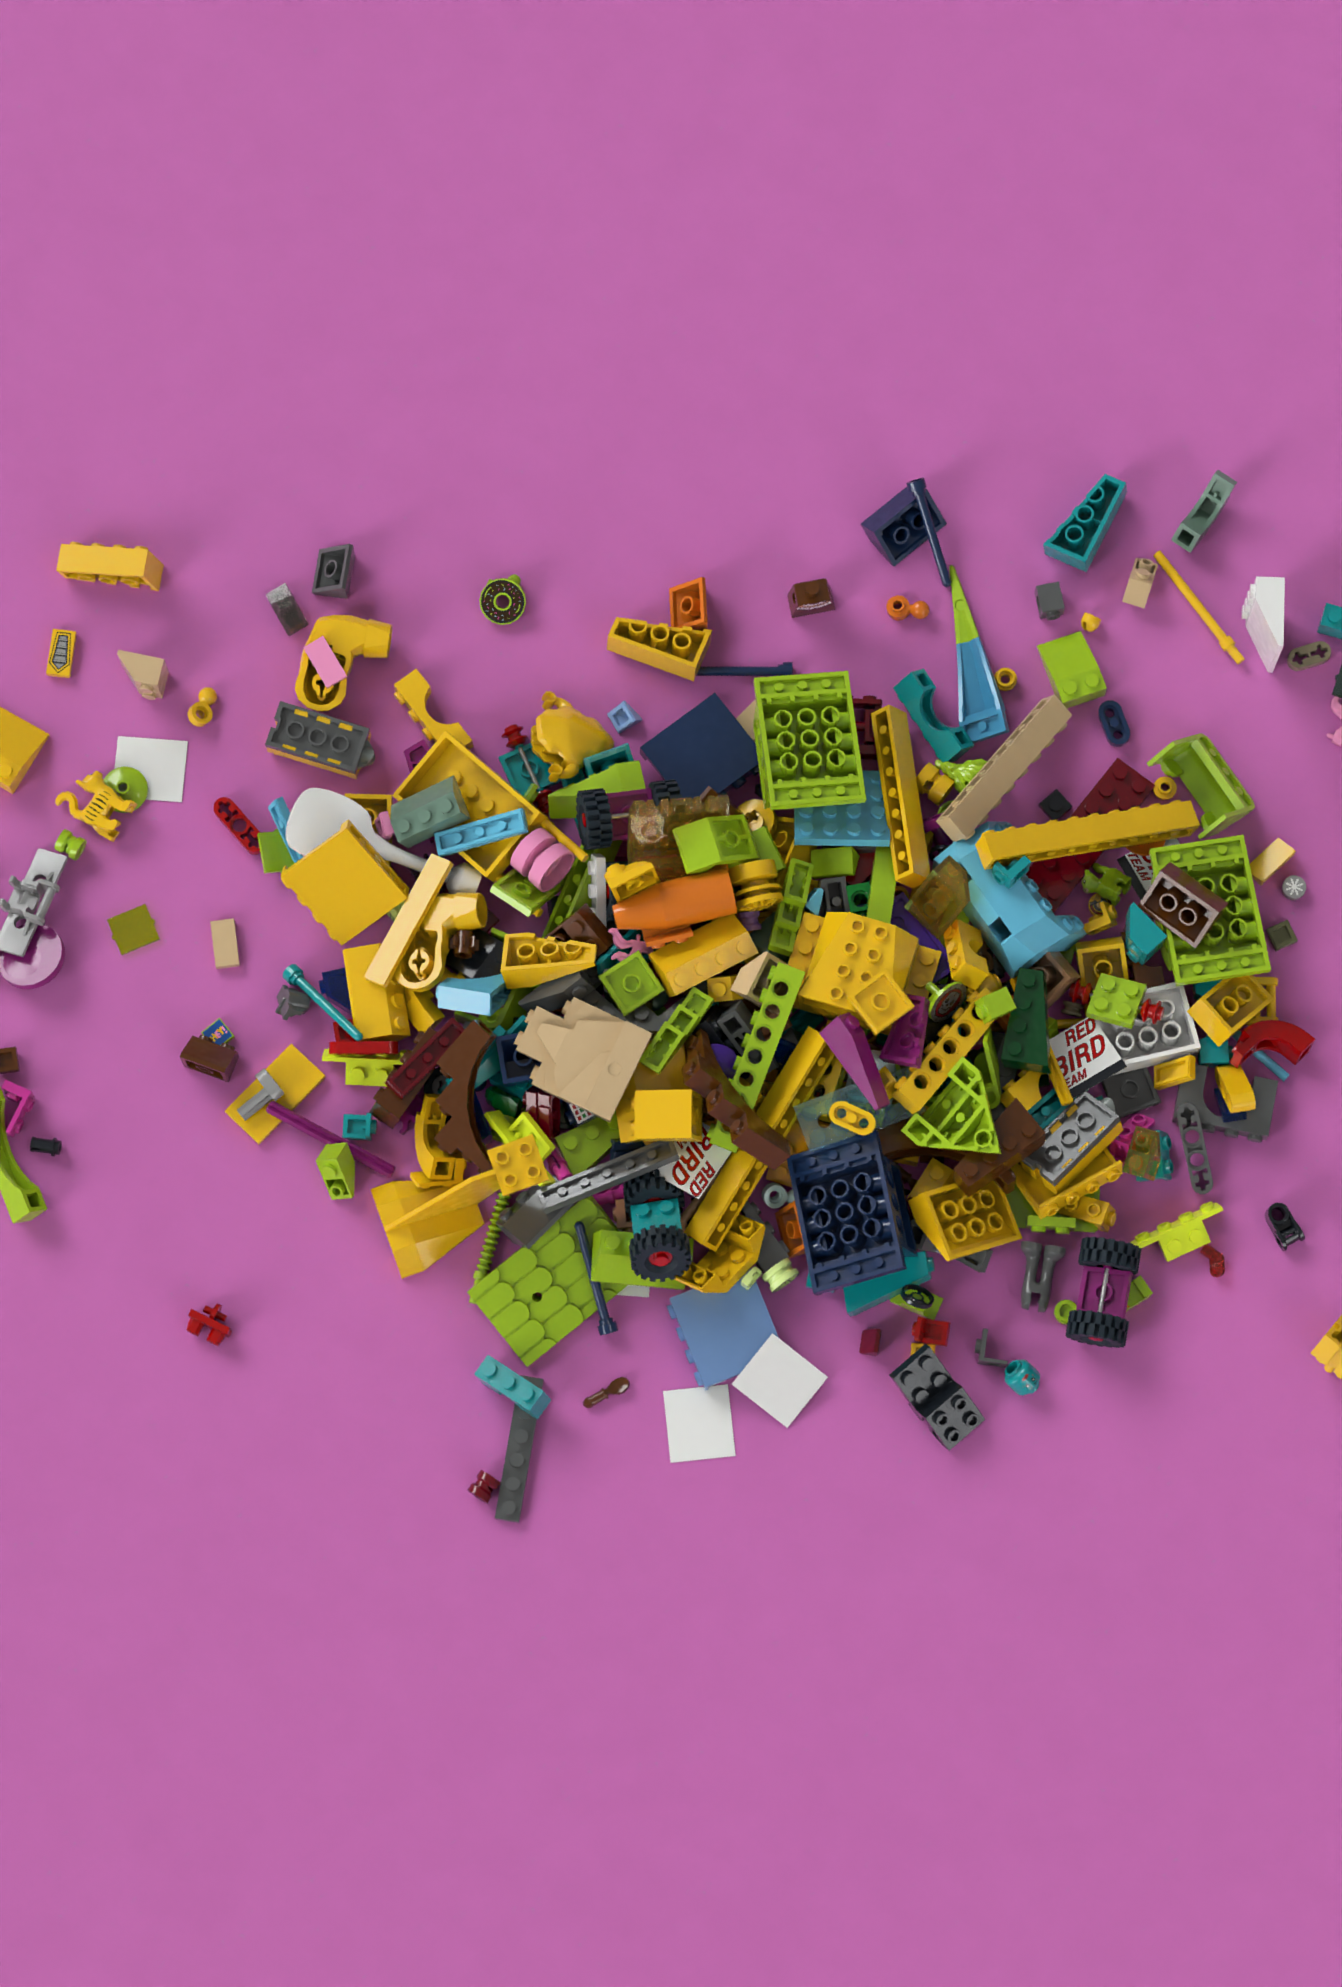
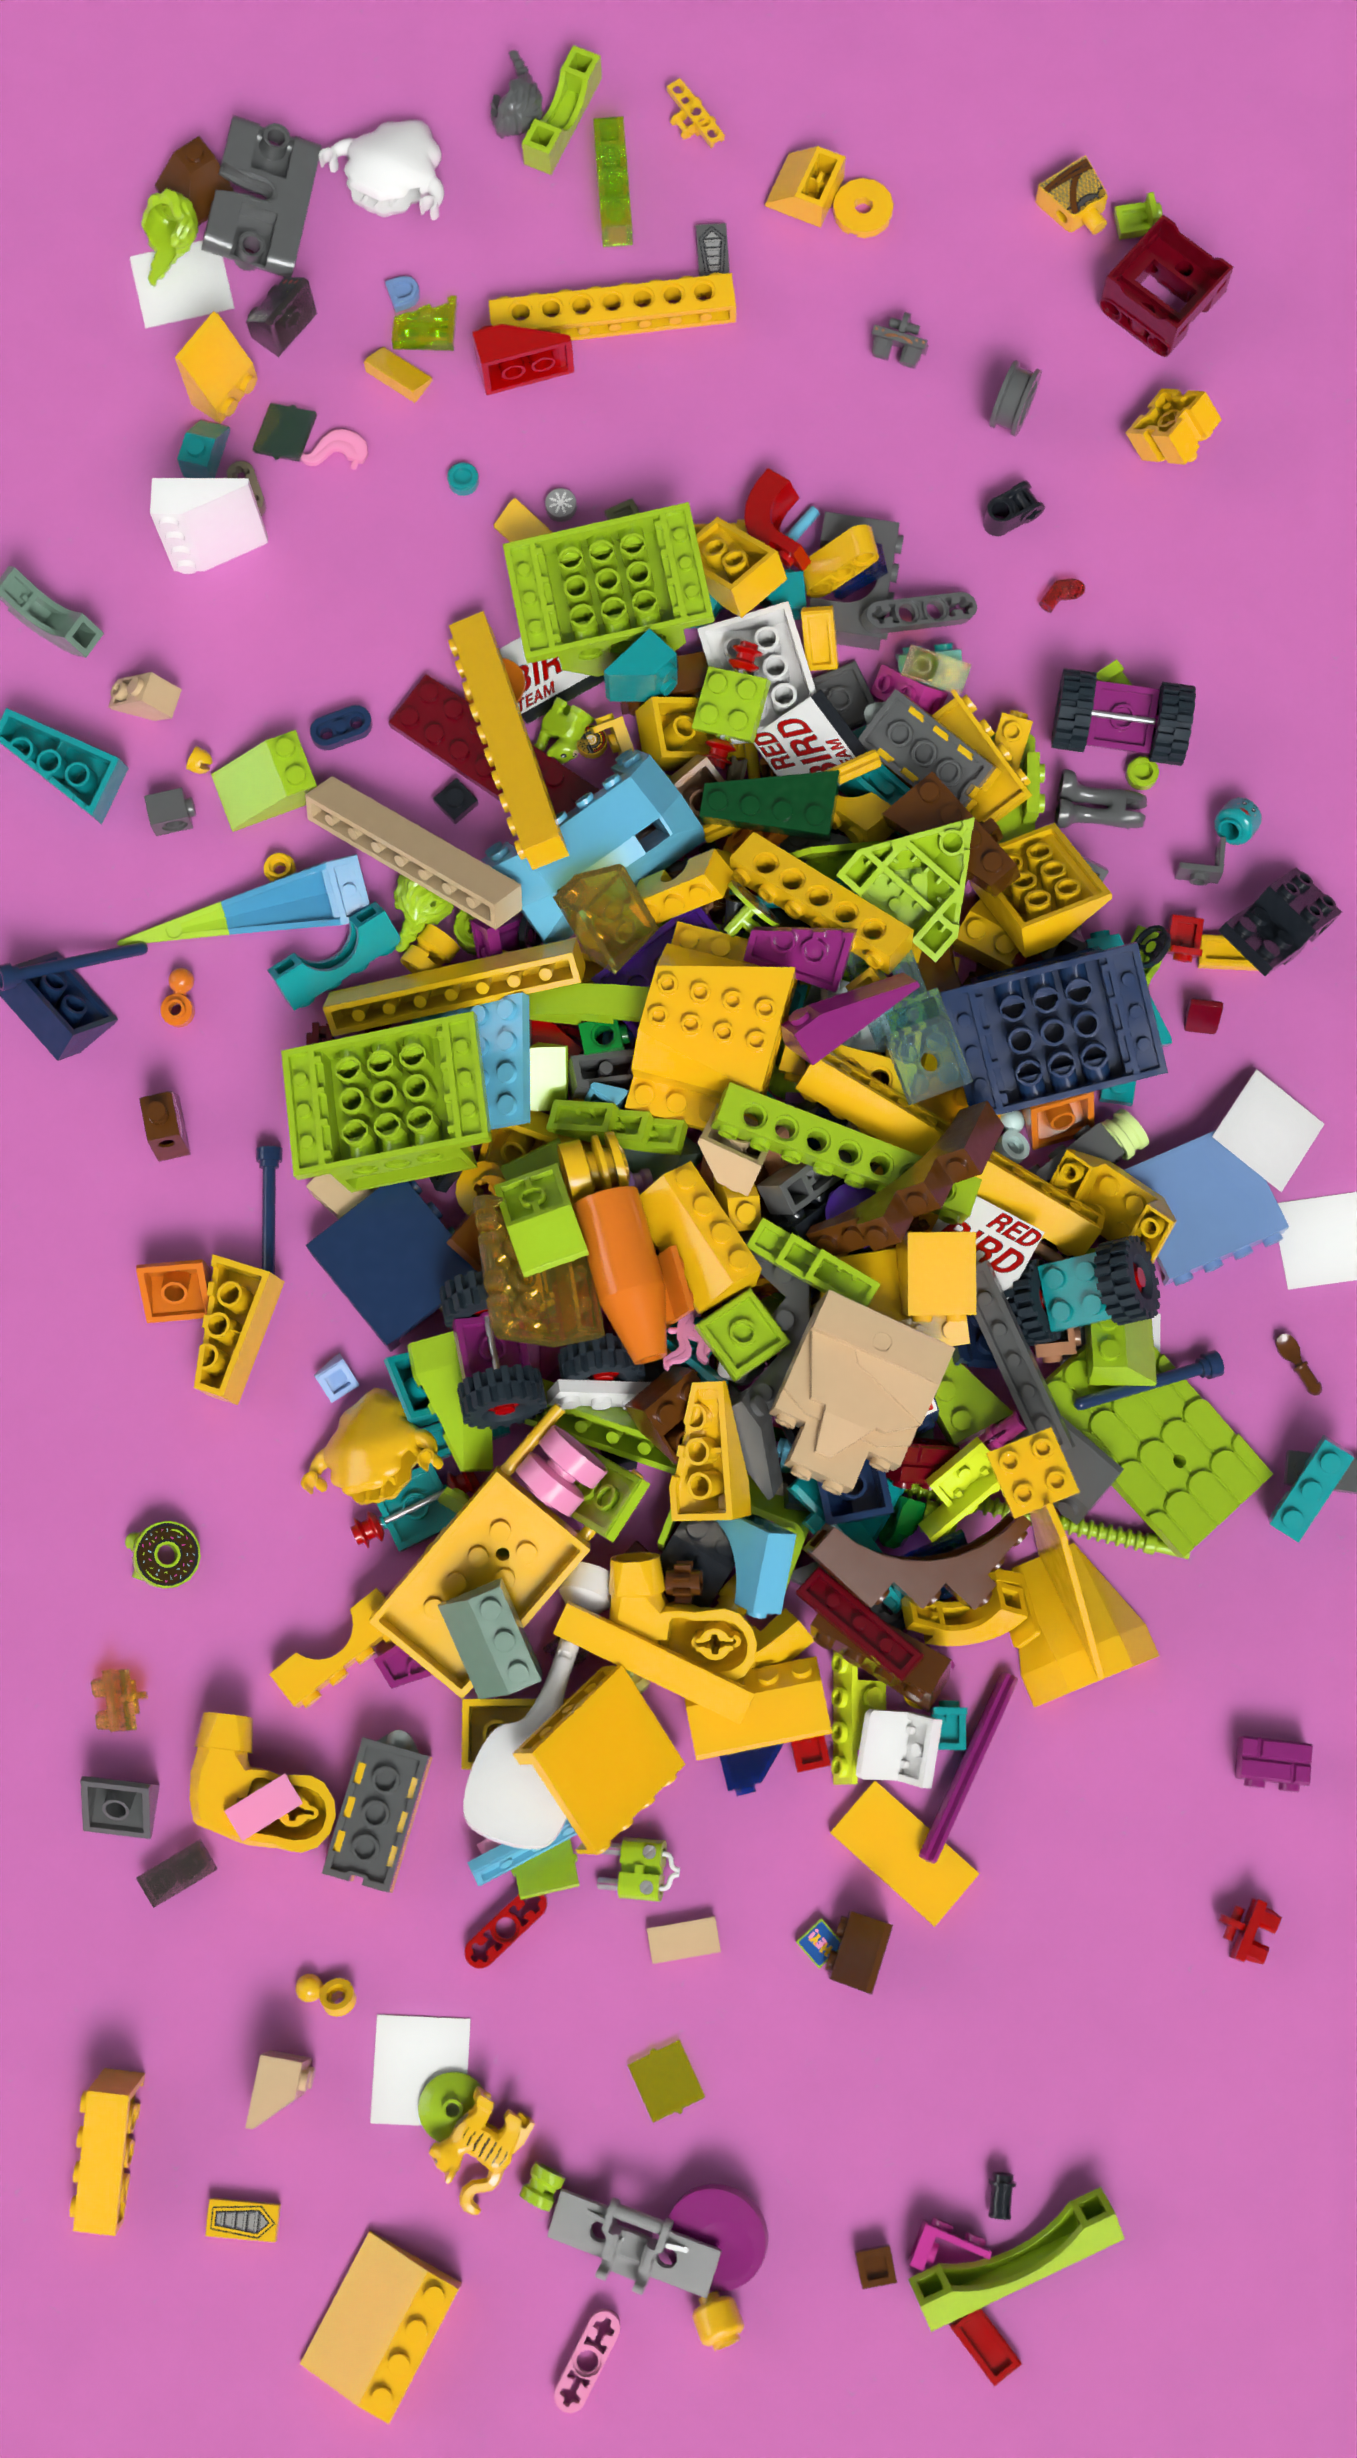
camera: 90 degrees left, 0 degrees up
(270, 1091) = (906, 1857): light grey piece -> none
(273, 915) = (641, 1869): none -> lime piece
(292, 1002) = (771, 1834): dark grey piece -> none
(294, 976) = (730, 1832): teal piece -> none
(323, 1349) = (1274, 1762): none -> magenta brick
(337, 1170) = (1014, 1753): lime slope -> none
(345, 1088) = (899, 1747): none -> white bracket
(363, 1047) = (841, 1722): red beam -> none
(384, 826) = (513, 1705): bright pink tile -> none
(404, 571) = (121, 1700): none -> clear yellow hips
(481, 832) = (524, 1559): medium azure tile -> none
(630, 878) = (601, 1340): yellow slope -> none
(751, 1277) = (1140, 1170): yellowish green tile -> none
(852, 1118) = (930, 1020): yellow plate -> none
(880, 1001) = (769, 979): yellow tile -> none
(994, 1005) = (758, 839): lime brick -> none
(1011, 874) = (573, 817): teal bracket -> none
(1165, 795) = (433, 670): yellow plate -> none
(1181, 1235) = (1030, 632): neon yellow bracket -> none
(1182, 904) = (606, 607): reddish brown slope -> none
(1208, 781) = (426, 605): lime windscreen -> none
(1226, 642) = (227, 591): yellow bar -> none
(1316, 815) = (463, 479): none -> teal tile

